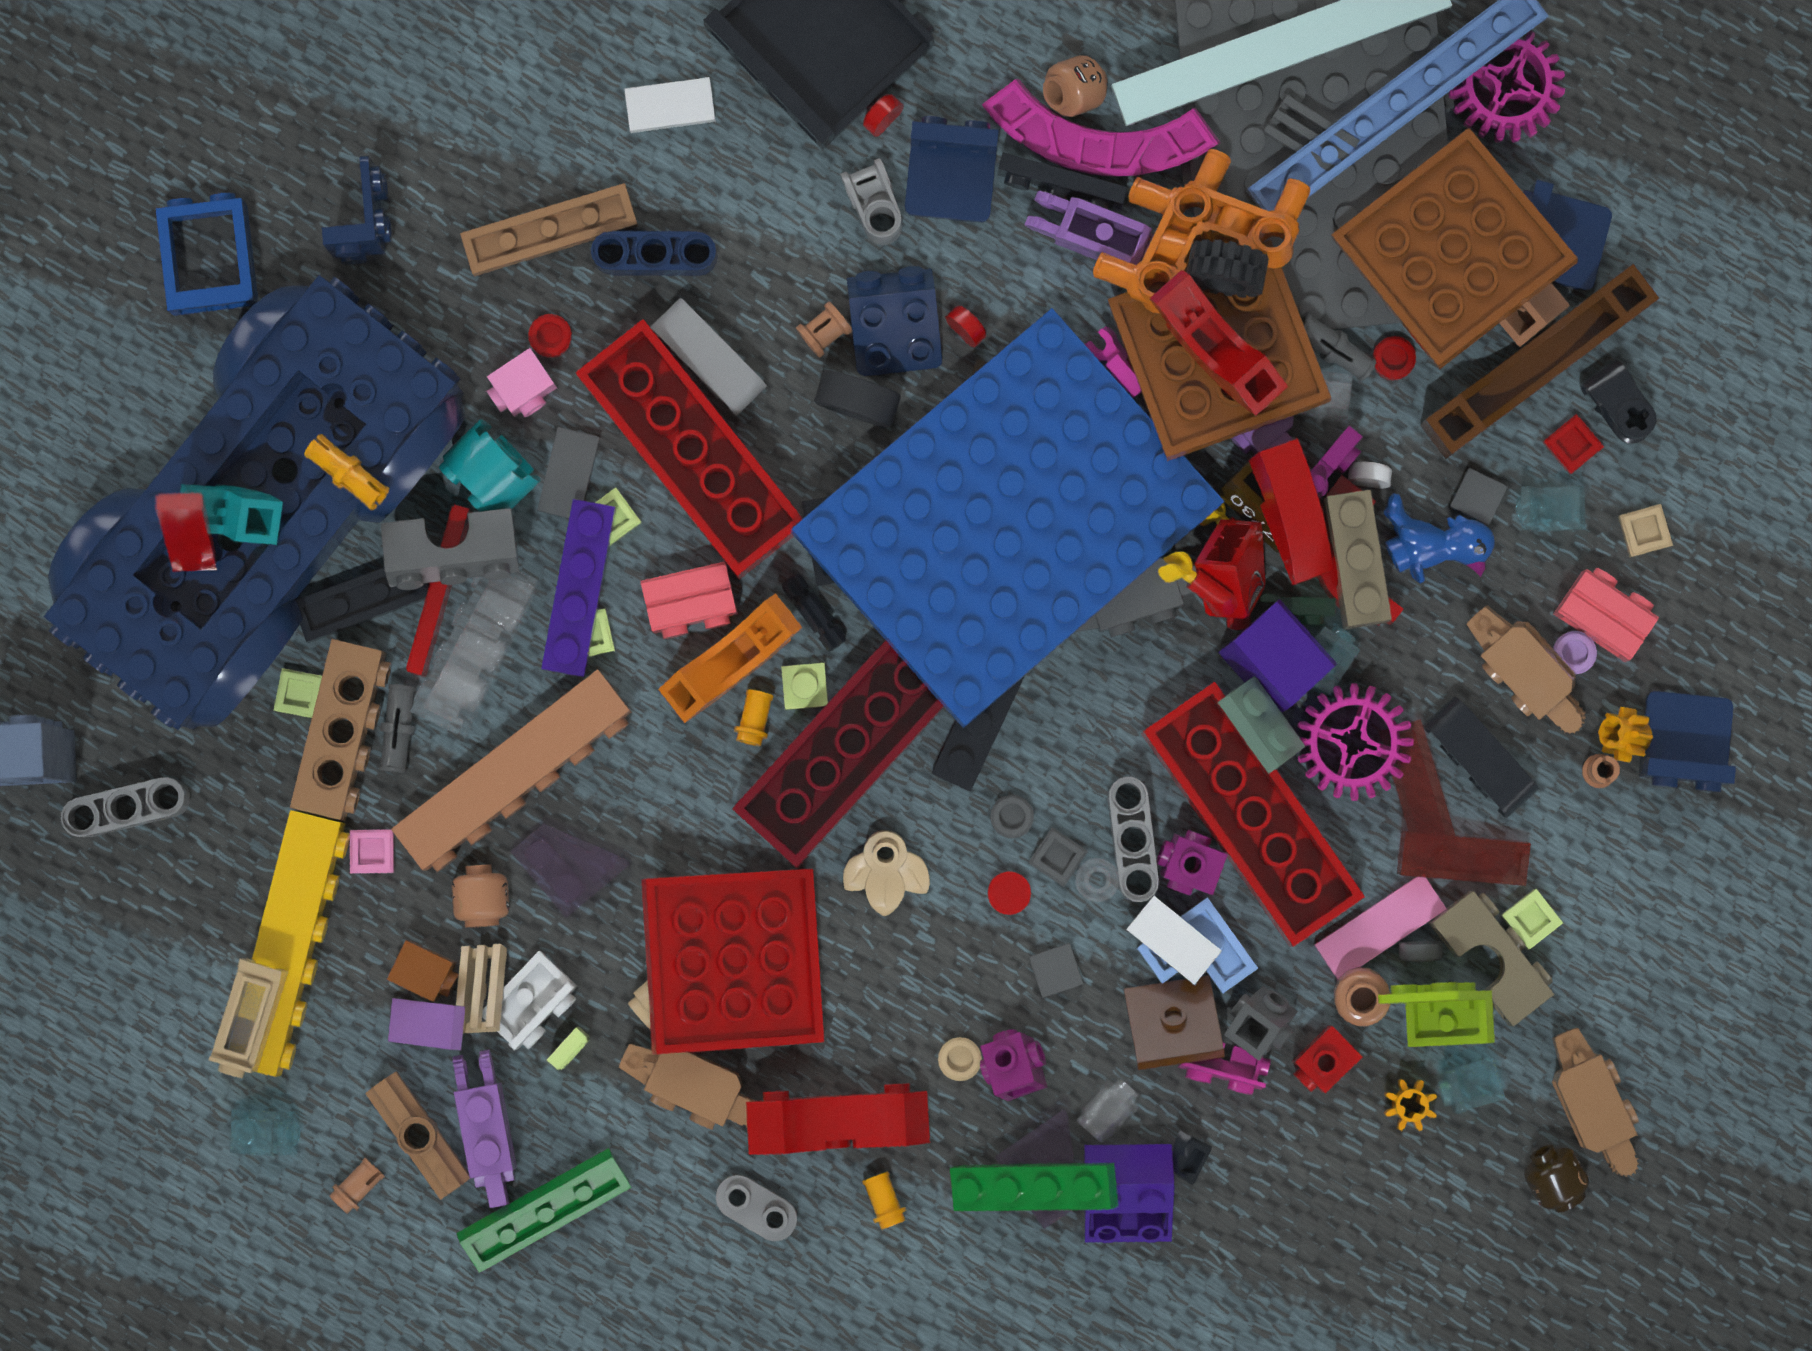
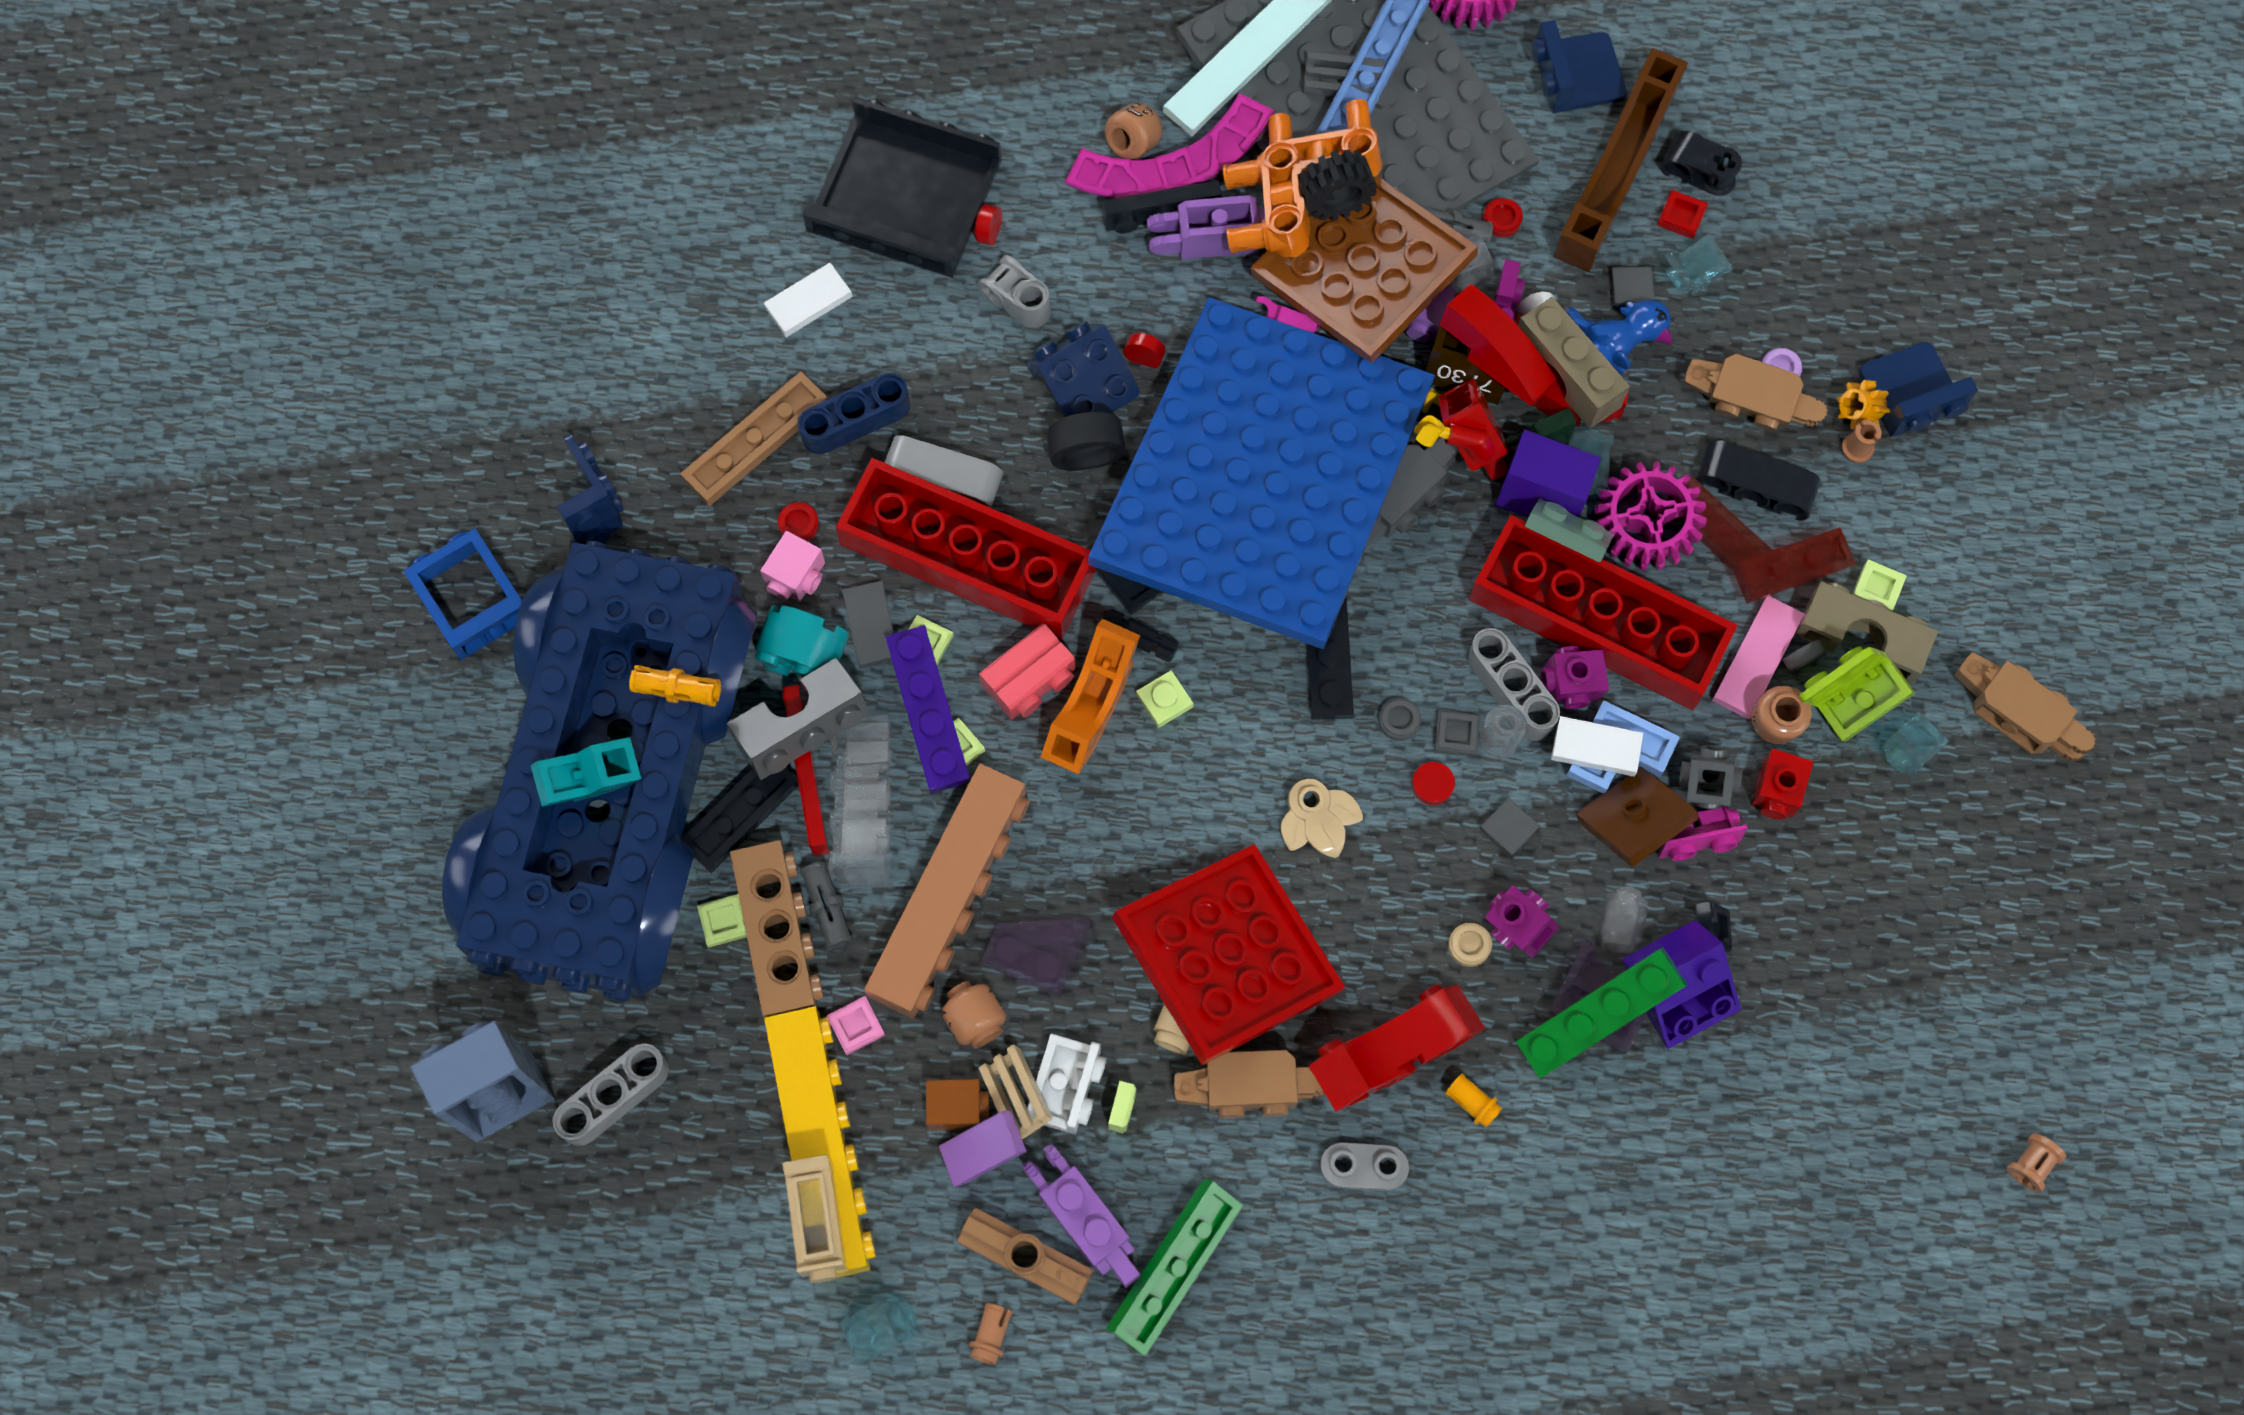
camera: 30 degrees left, 15 degrees down
(186, 531) = (553, 796): red tile -> none
(754, 718) = (1135, 743): light orange pin -> none
(824, 329) = (1028, 407): nougat bush -> none
(839, 755) = (1227, 734): dark red brick -> none
(951, 170) = (1066, 236): dark blue bracket -> none
(1216, 346) = (1365, 251): red arch -> none
(1421, 1099) = (1867, 794): light orange gear -> none
(1454, 248) = (1507, 98): dark orange plate -> none
(1534, 315) = (1590, 126): nougat brick -> none
(1556, 1178) = (2032, 785): dark brown head -> none
(1607, 614) = (1790, 322): coral brick -> none
(1645, 530) = (1778, 250): tan tile -> none

